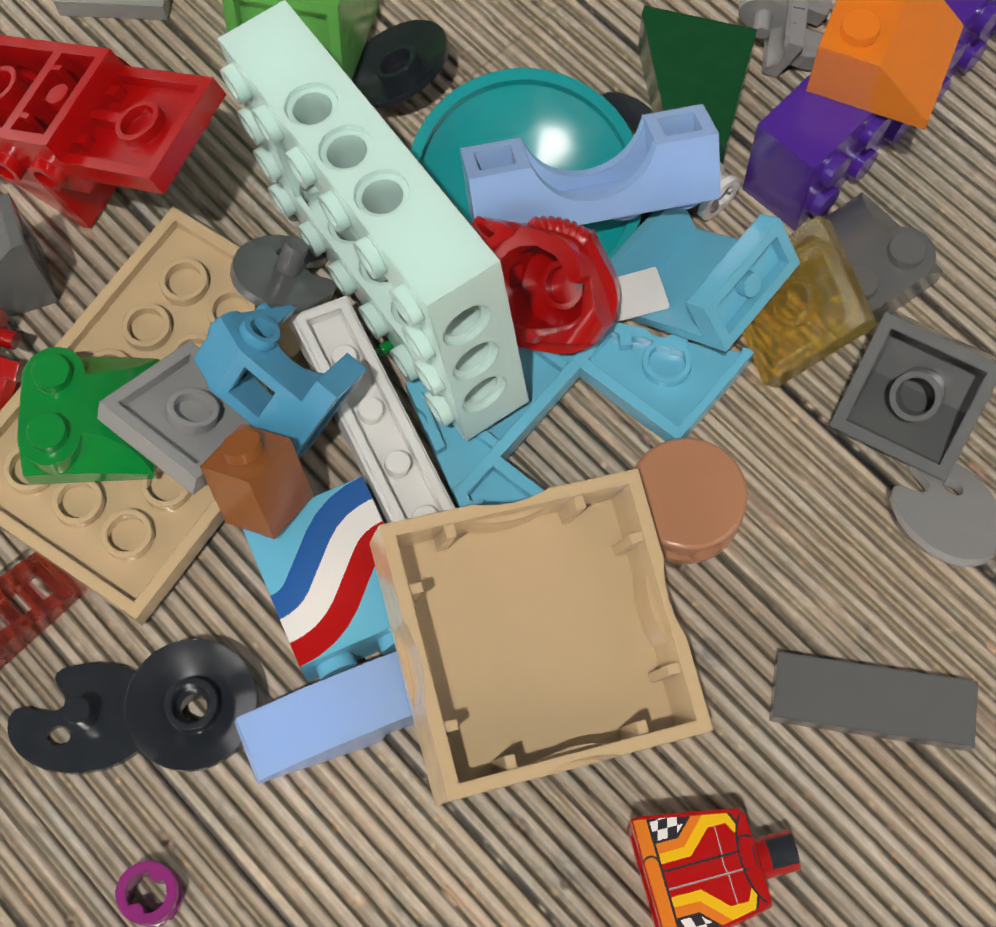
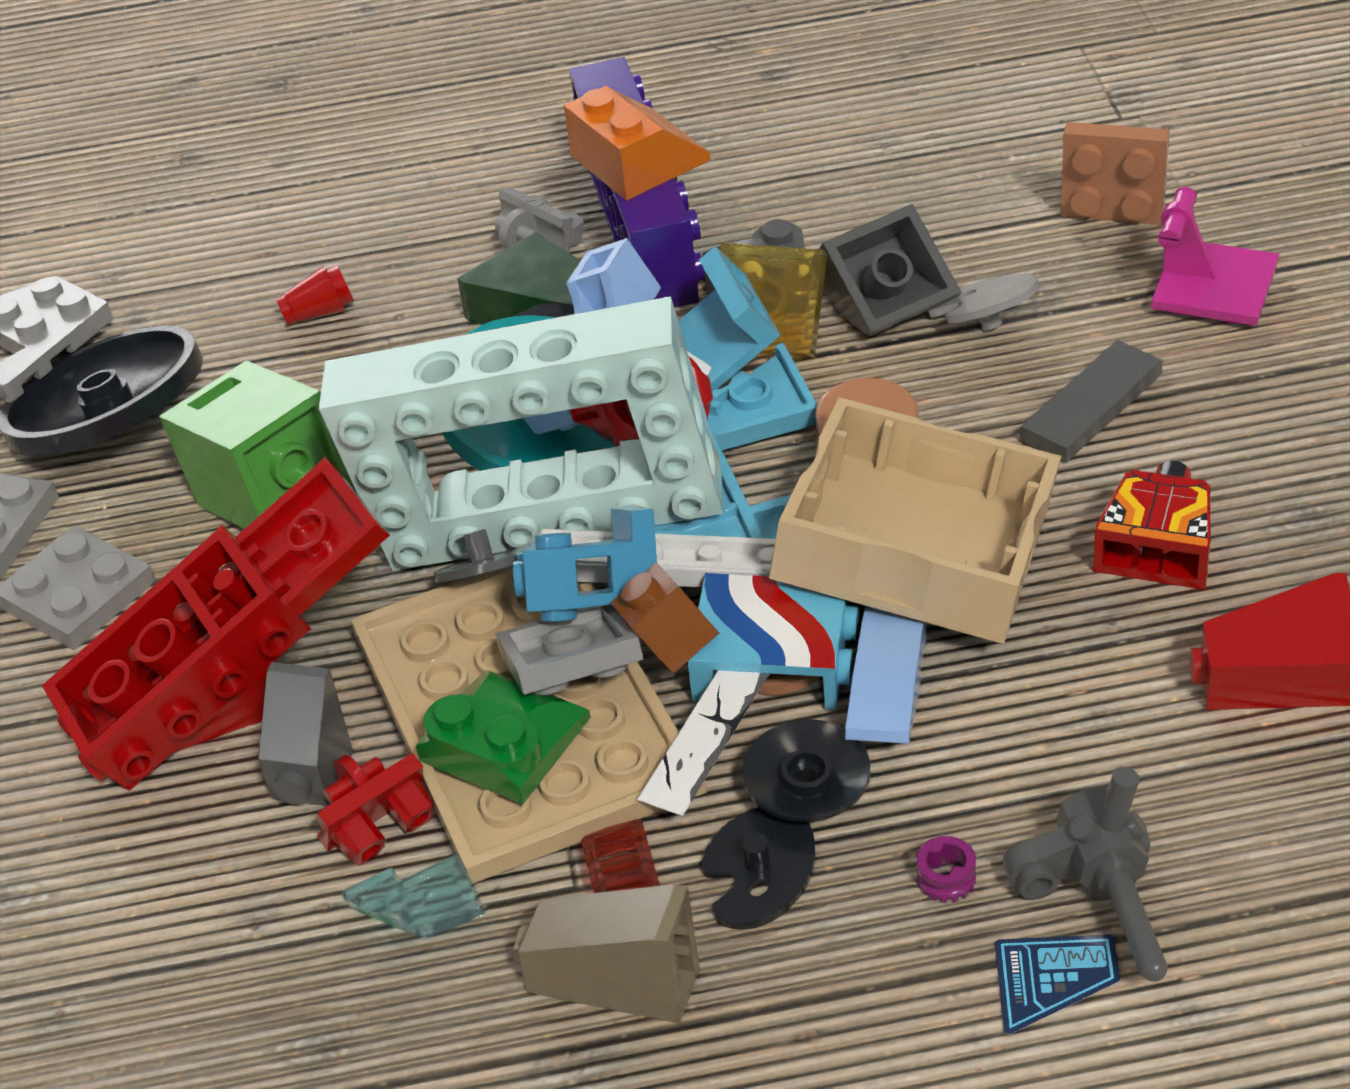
camera: 55 degrees left, 25 degrees down
(170, 594) = (702, 740): none -> white sticker

